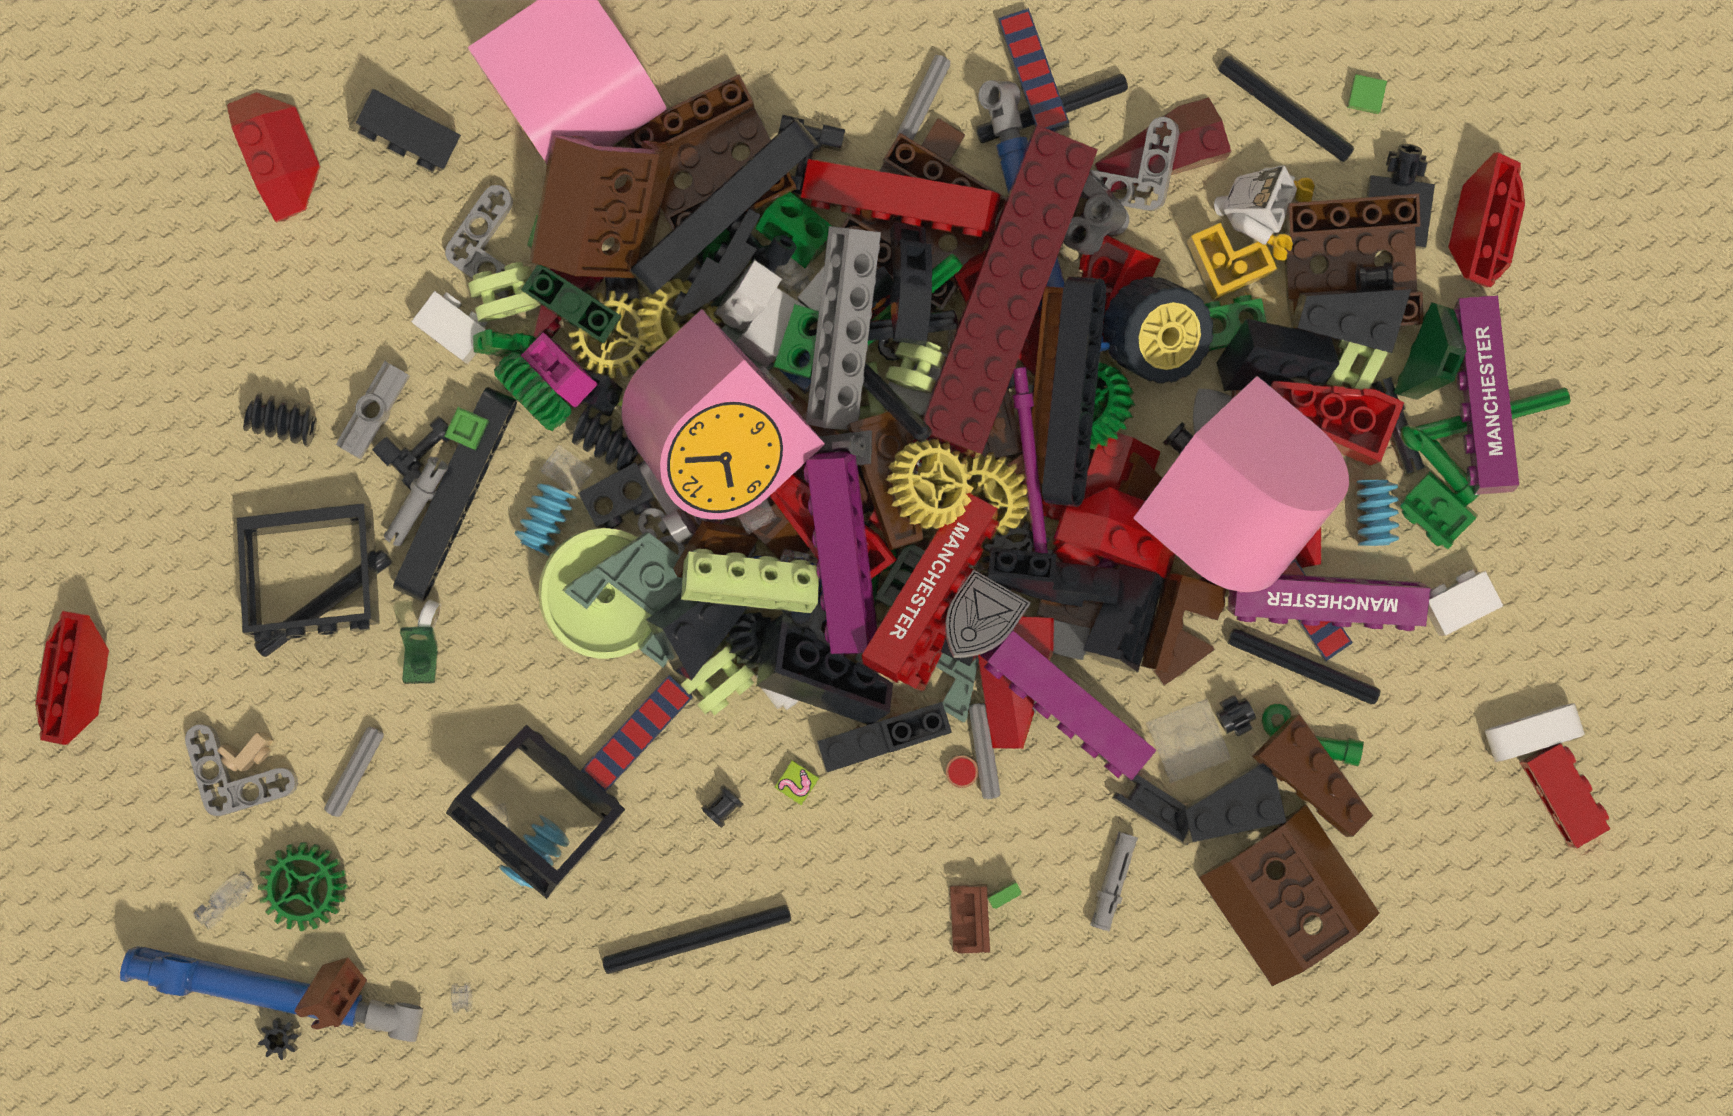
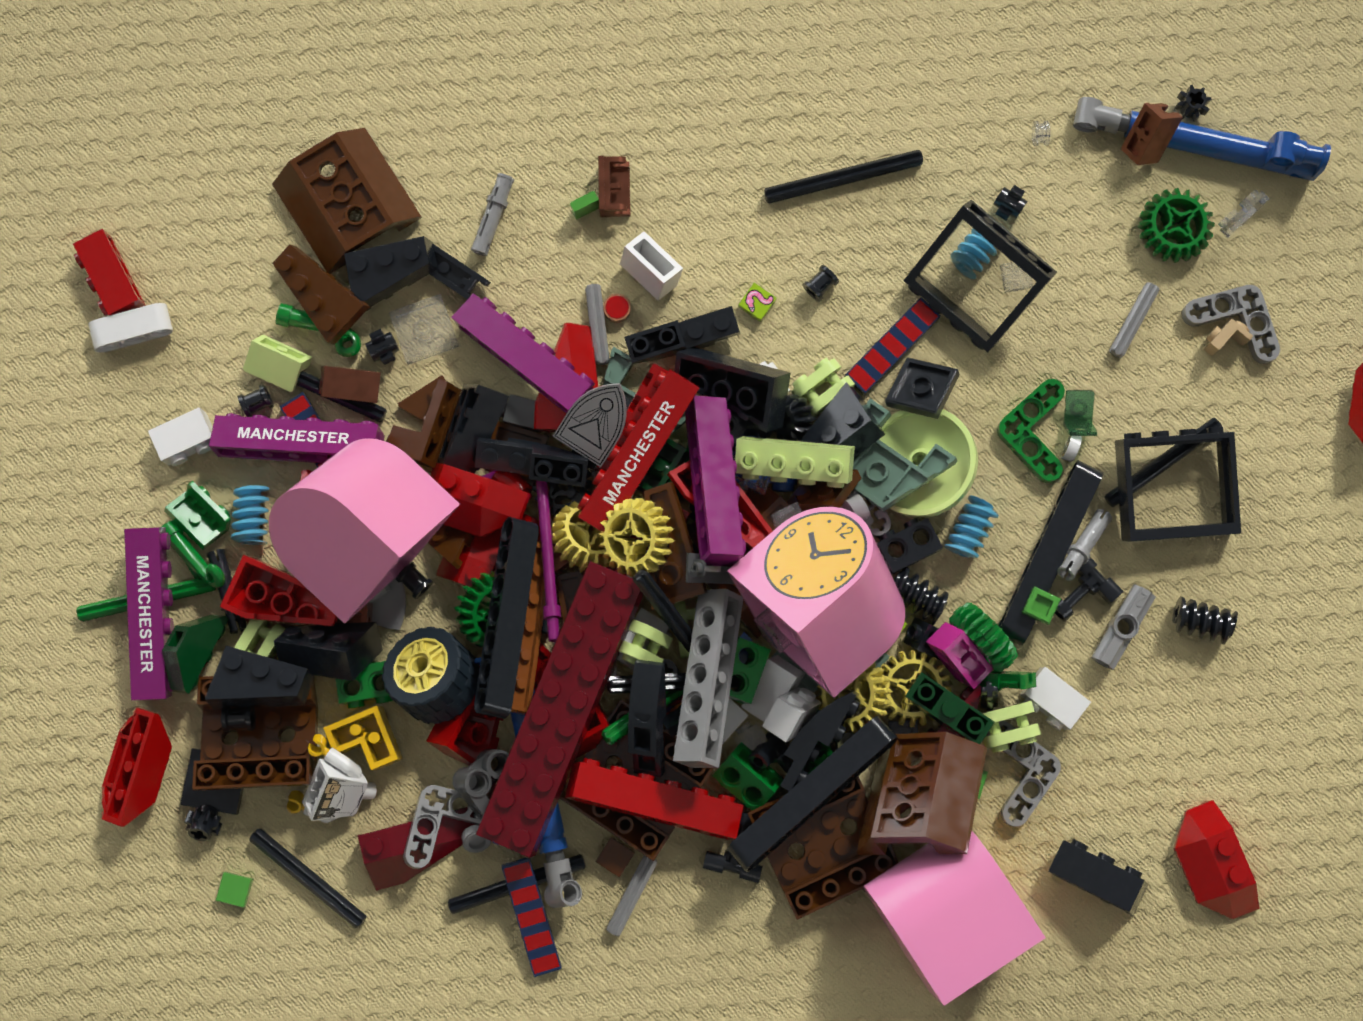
camera: 175 degrees left, 5 degrees down
(483, 631) = (1024, 434): none -> green beam
(498, 909) = (1010, 202): none -> black gear
(525, 324) = (989, 696): none -> black axle
(566, 470) = (952, 571): clear panel -> none
(602, 680) = (922, 388): none -> black tile
(923, 819) = (651, 266): none -> white brick
(1105, 155) = (473, 842): none -> light grey tile
(1271, 668) = (349, 384): none -> copper hinge
(1359, 695) = (275, 362): none -> yellowish green panel
(1381, 648) = (255, 401): none -> black bush

